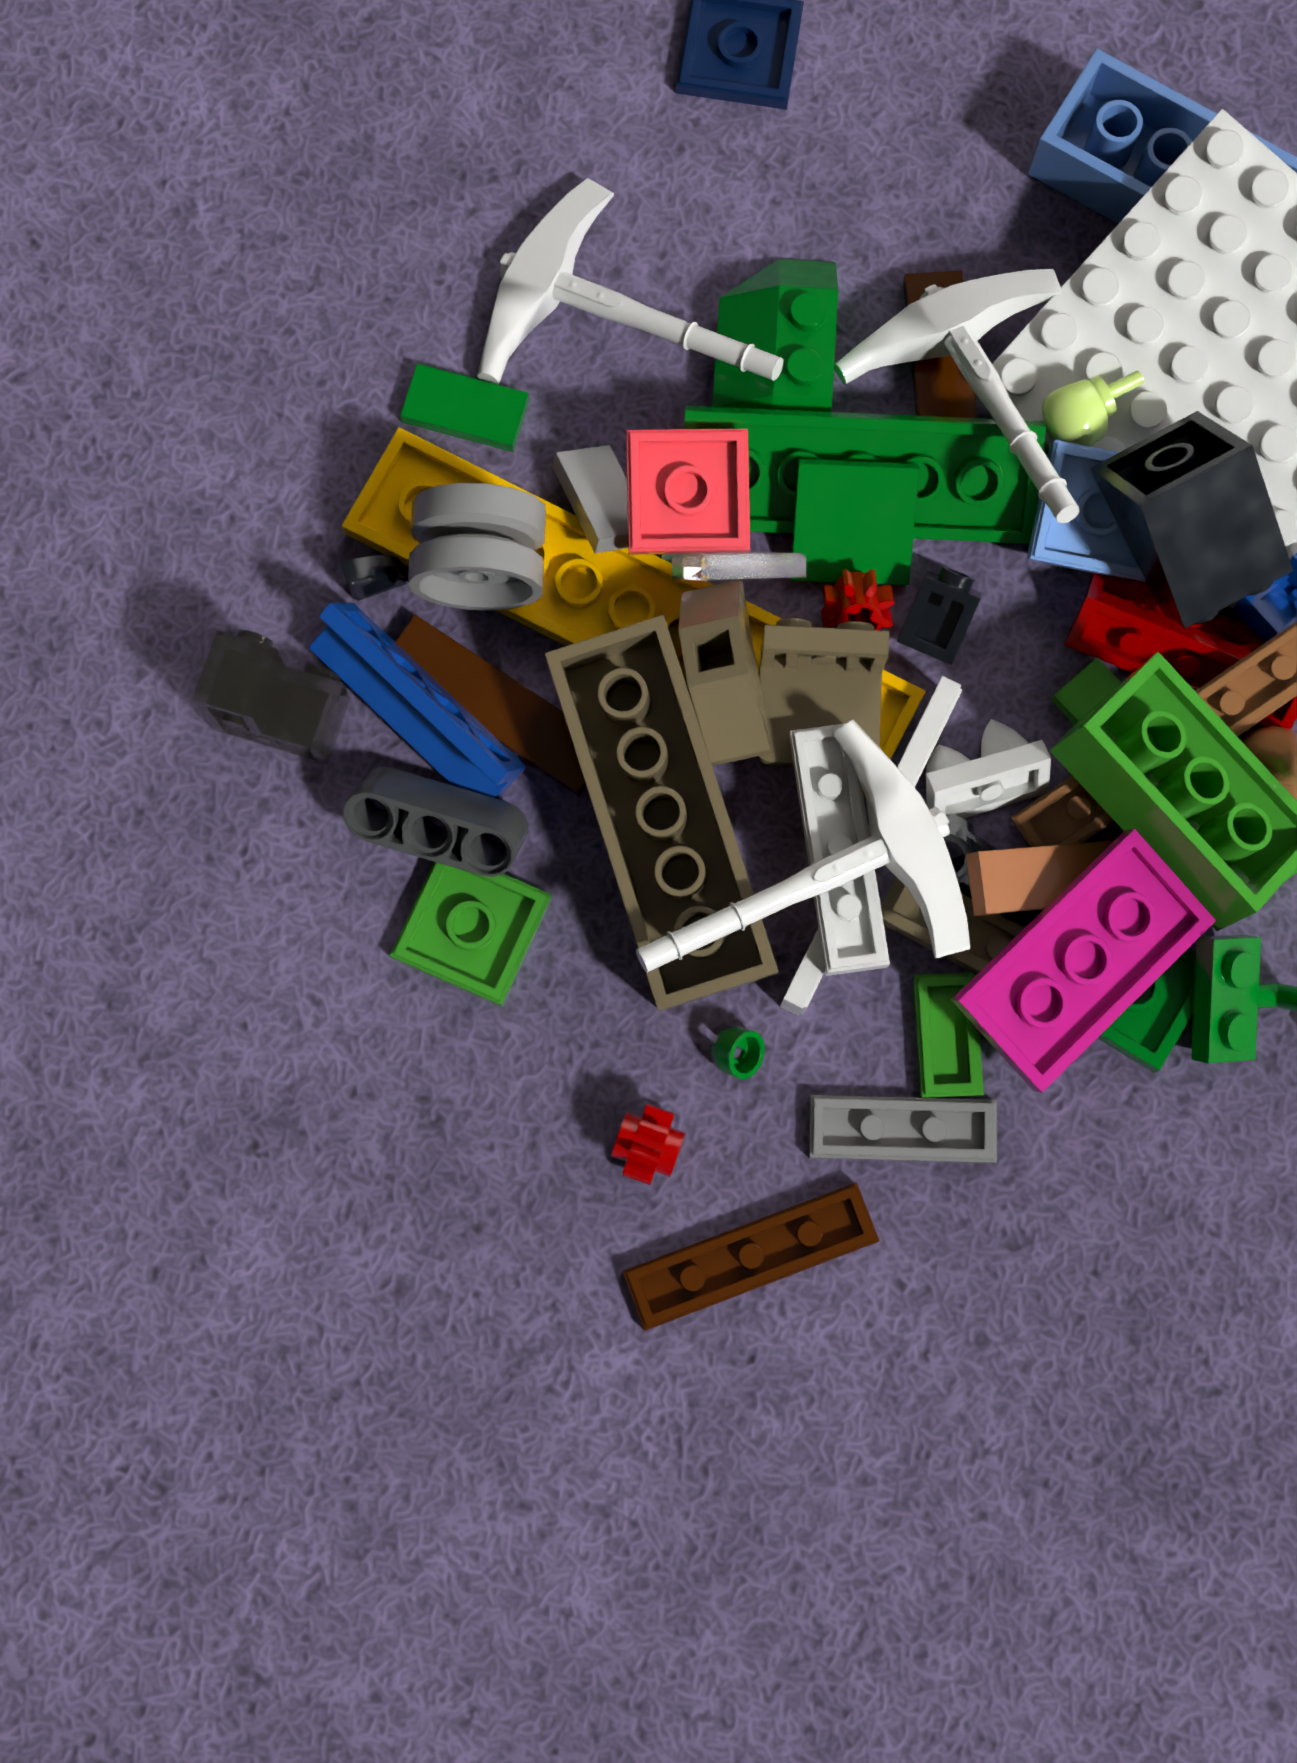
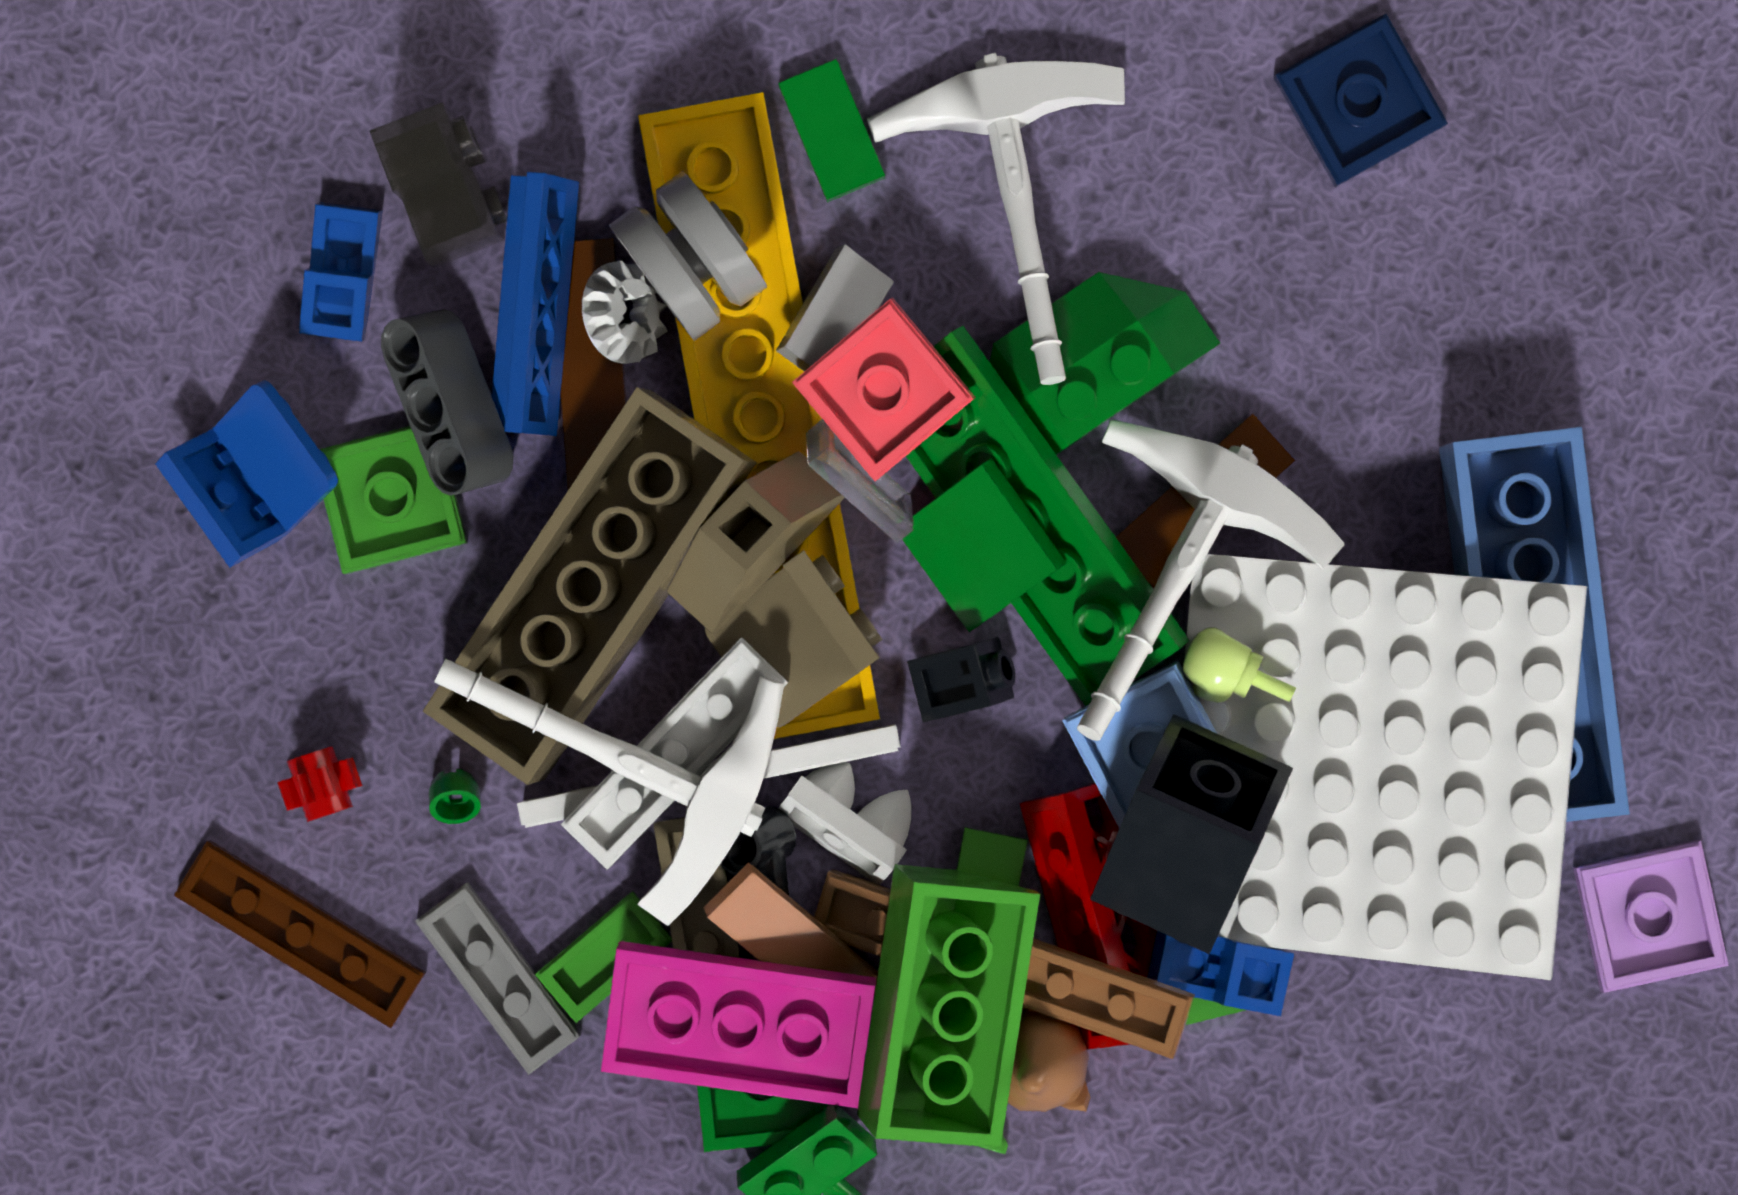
camera: 60 degrees right, 10 degrees up
(274, 831) = (340, 271): none -> blue slope
(371, 1004) = (250, 475): none -> blue bracket
(373, 575) = (614, 175): black tile -> none
(476, 644) = (605, 305): none -> white gear
(857, 599) = (909, 605): red gear -> none

